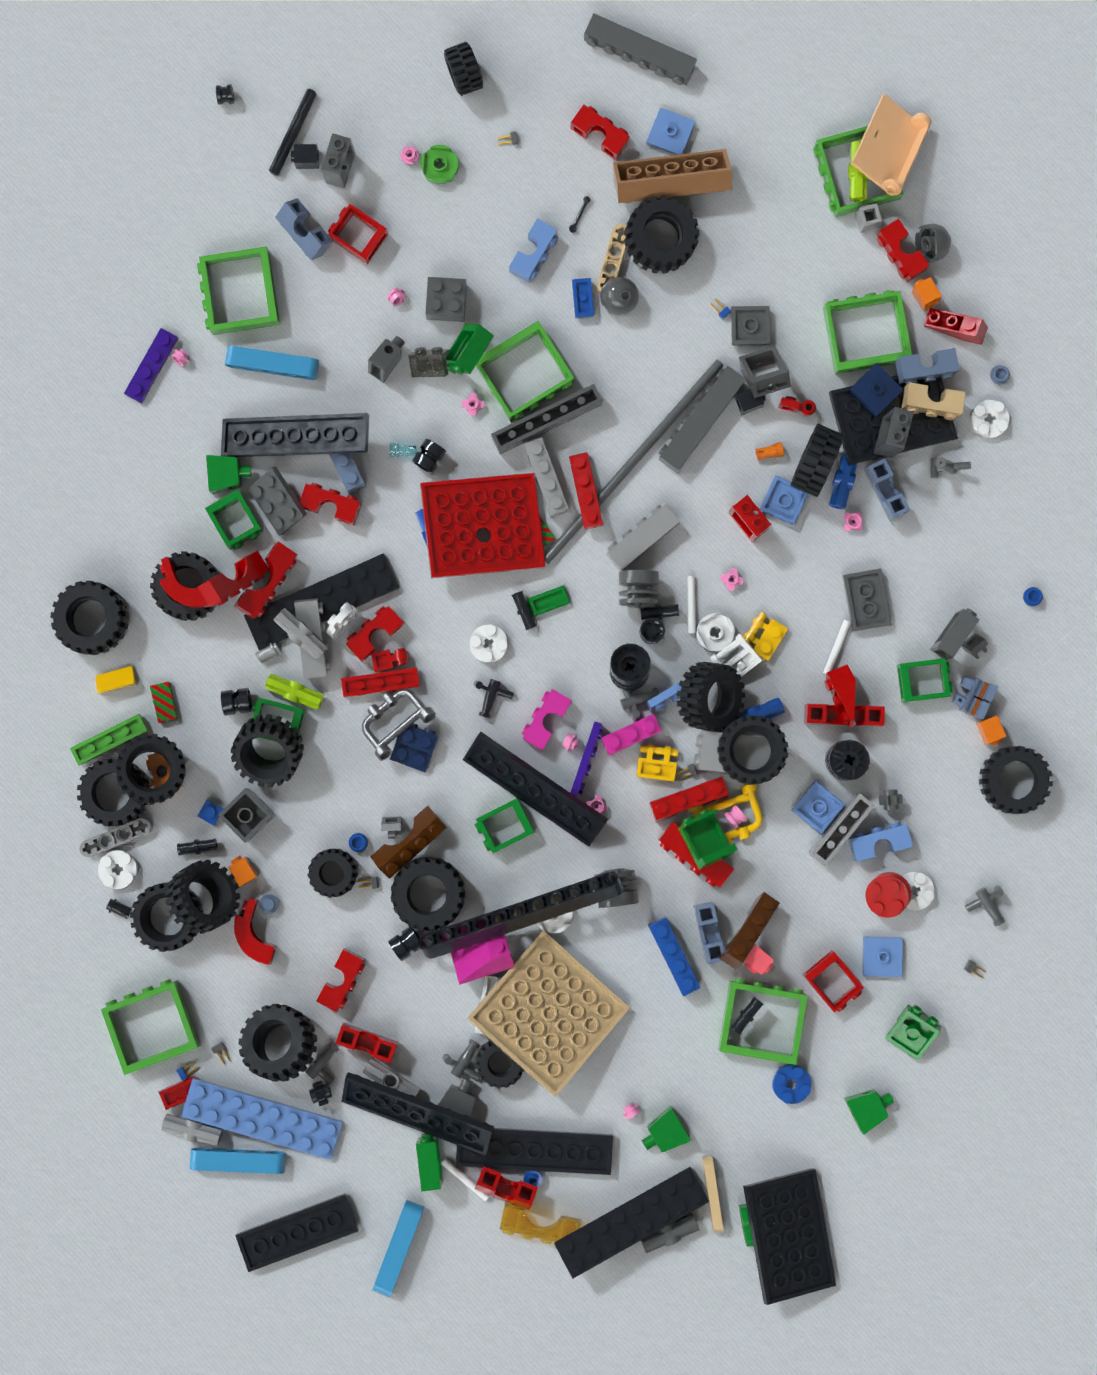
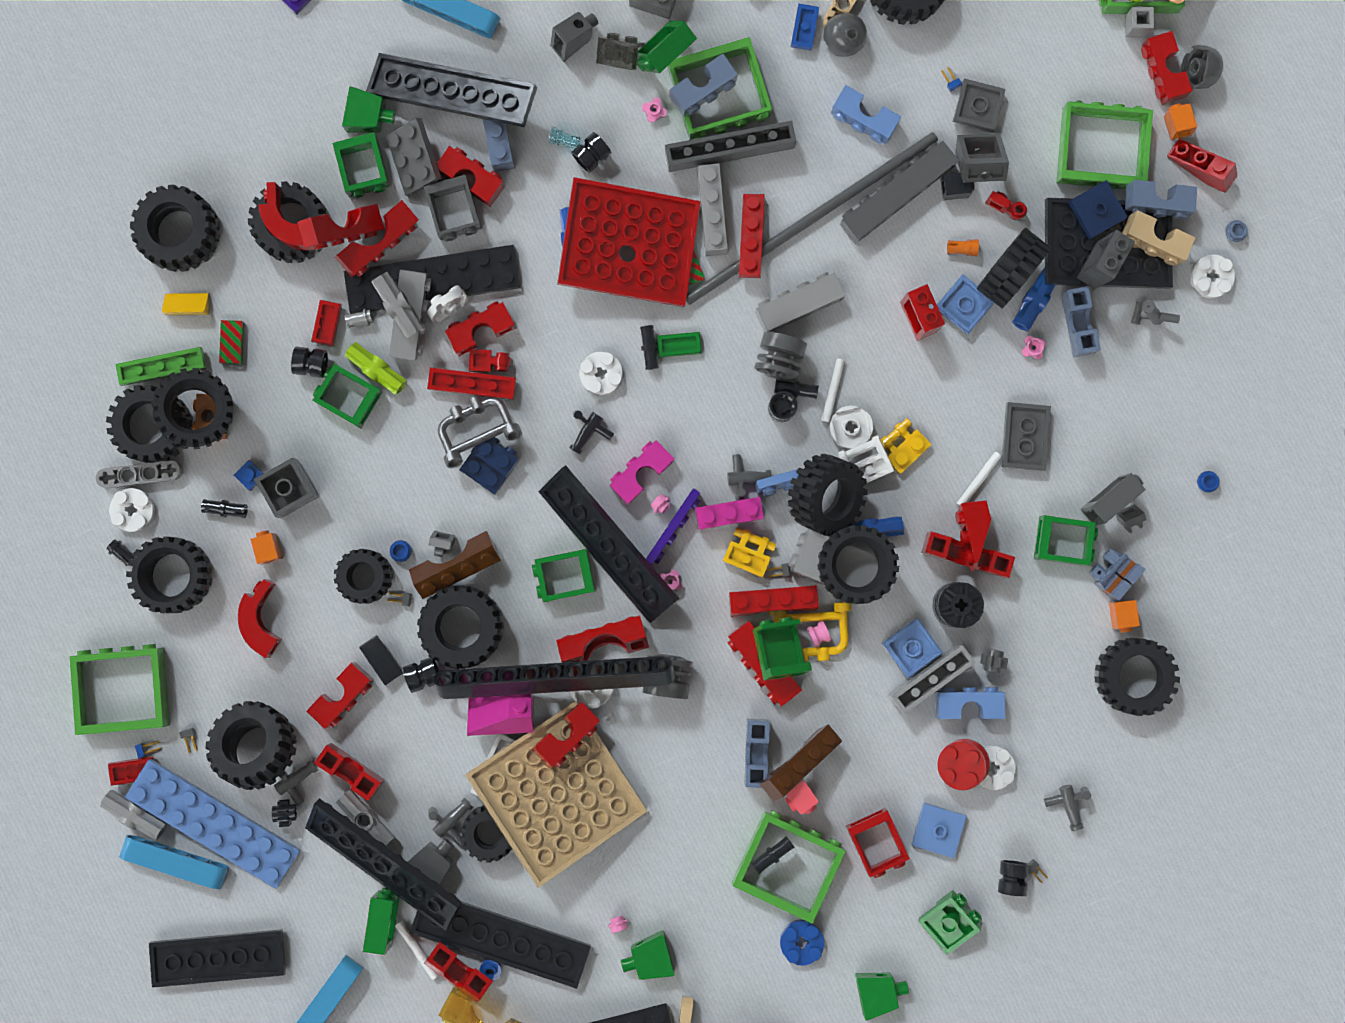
camera: 10 degrees right, 0 degrees up
(221, 891) = (235, 558): black tyre -> none
(241, 664) = (326, 323): none -> red plate
(257, 767) = (308, 434): black tyre -> none
(269, 904) = (285, 591): sand blue plate -> none
(313, 519) = (445, 188): none -> dark grey window
(367, 940) = (380, 660): none -> black slope
(499, 387) = (690, 98): none -> sand blue arch
(536, 977) = (581, 723): none -> red arch
(570, 861) = (625, 633): none -> red arch
(631, 657) = (755, 431): black wheel -> none
(639, 359) = (848, 110): none -> medium blue arch
(674, 956) = (710, 768): blue arch -> none
(732, 584) = (881, 380): bright pink plate -> none
(956, 980) = (1013, 878): none -> black wheel

